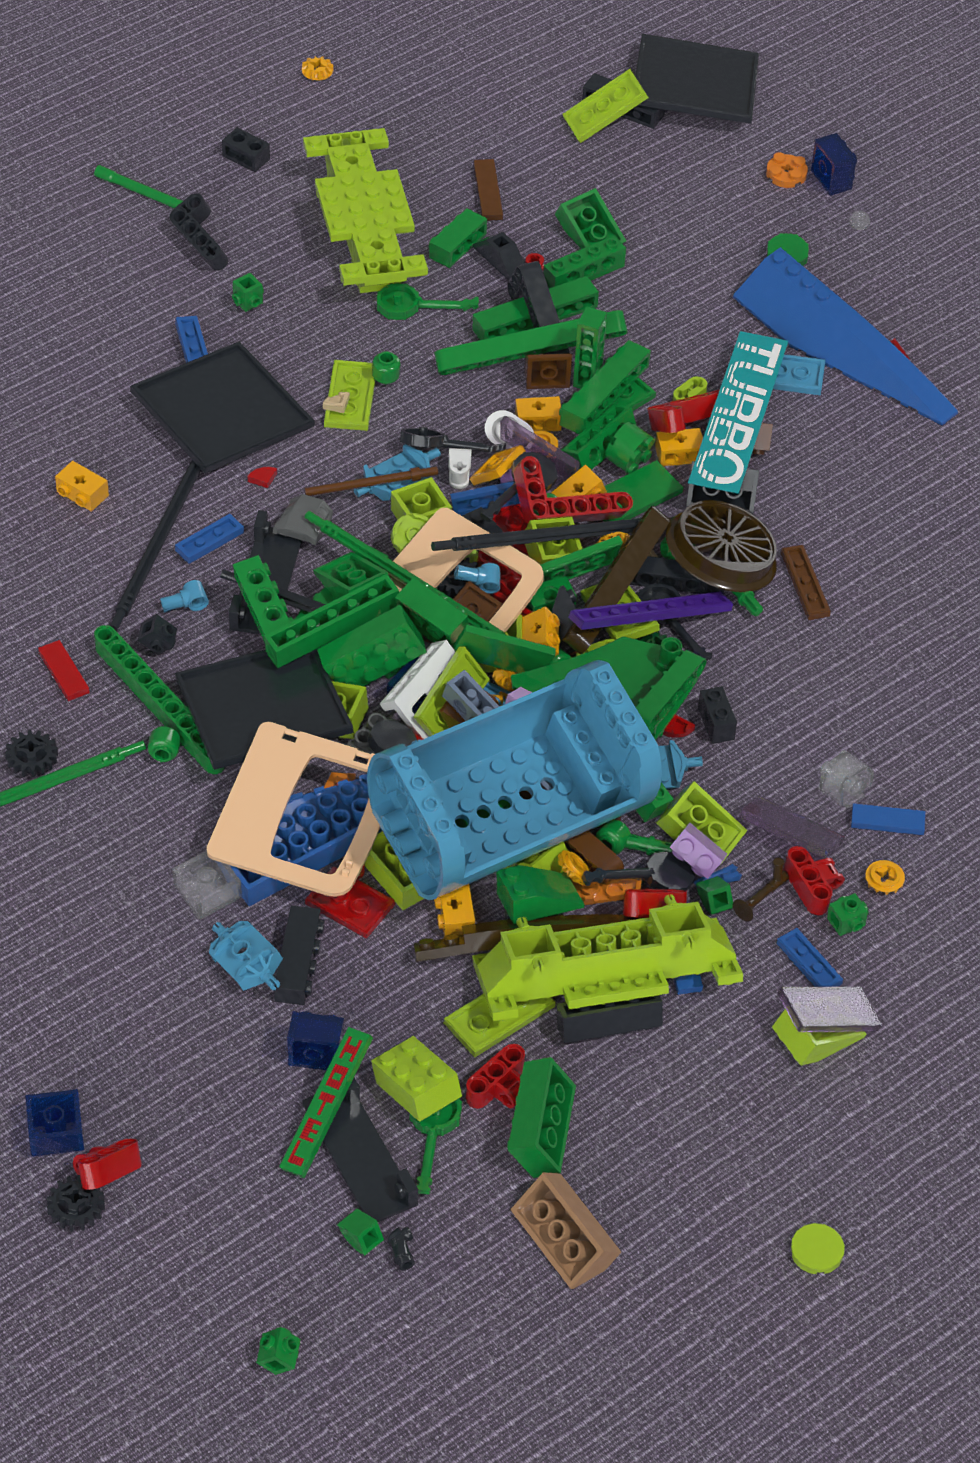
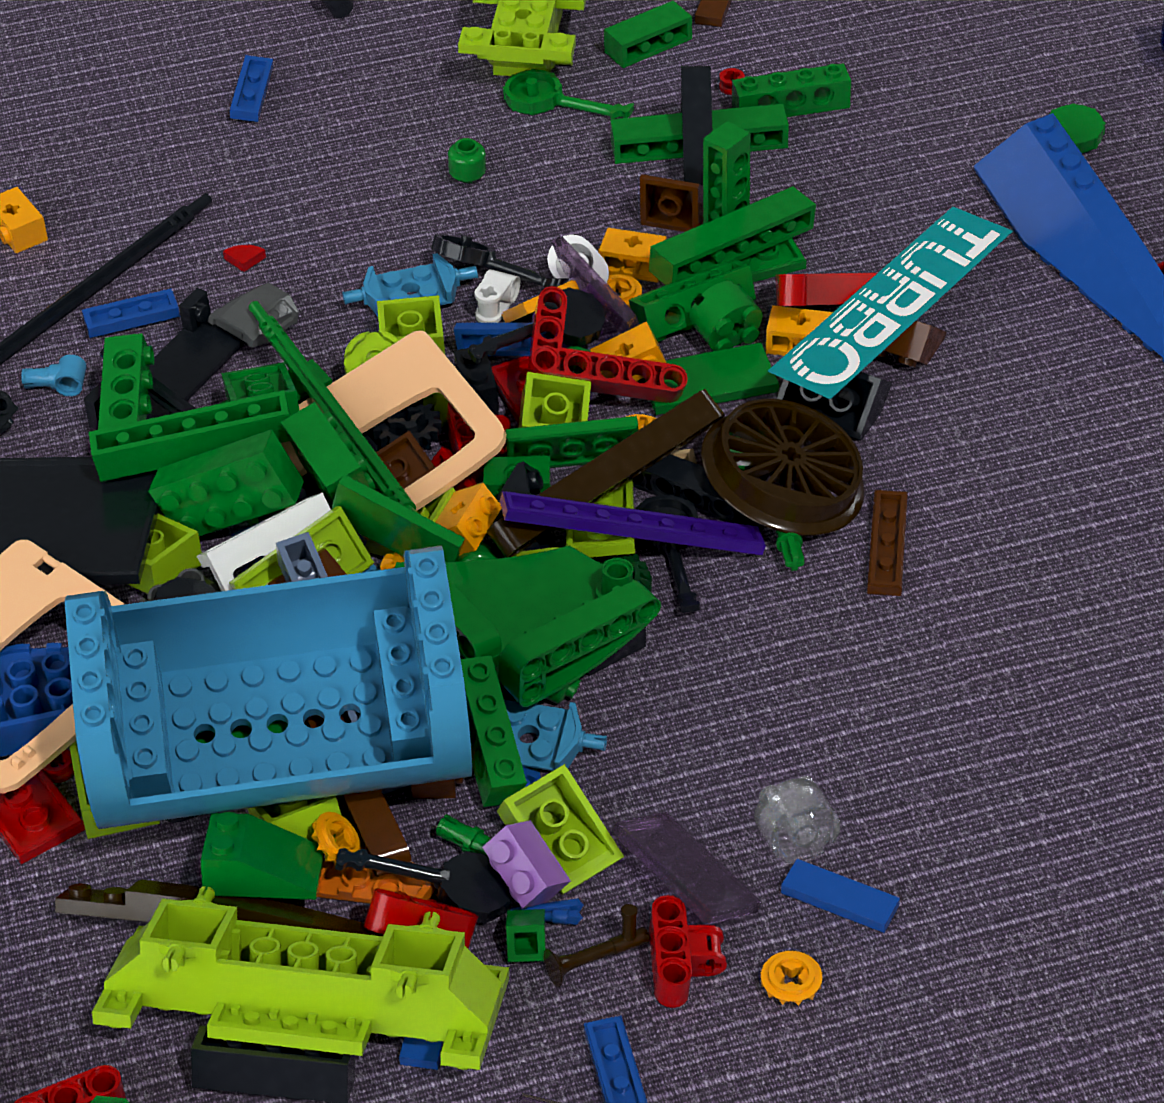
camera: 25 degrees right, 5 degrees down
(222, 406) = (240, 165): black tile -> none
(247, 292) = (348, 44): green brick -> none
(337, 403) = (385, 189): tan tile -> none
(359, 382) = (408, 187): lime tile -> none
(413, 474) = (422, 289): reddish brown bar -> none
(455, 911) = (154, 852): light orange brick -> none
(479, 1032) = (90, 1044): lime tile -> none
(485, 576) = (435, 432): dark azure pin -> none
(500, 253) = (689, 51): black slope -> none
(519, 344) = (625, 164): green beam -> none
(536, 535) = (516, 389): black axle -> none
(588, 219) = (825, 38): green slope -> none
(614, 835) = (421, 814): green head -> none
(678, 727) = (603, 691): red tile -> none
(686, 389) = (858, 263): lime beam -> none
(717, 715) = (662, 686): black brick -> none
(781, 162) = (1137, 33): orange plate -> none
(800, 375) = (1011, 278): dark azure tile -> none
(847, 914) = (702, 1016): green brick -> none

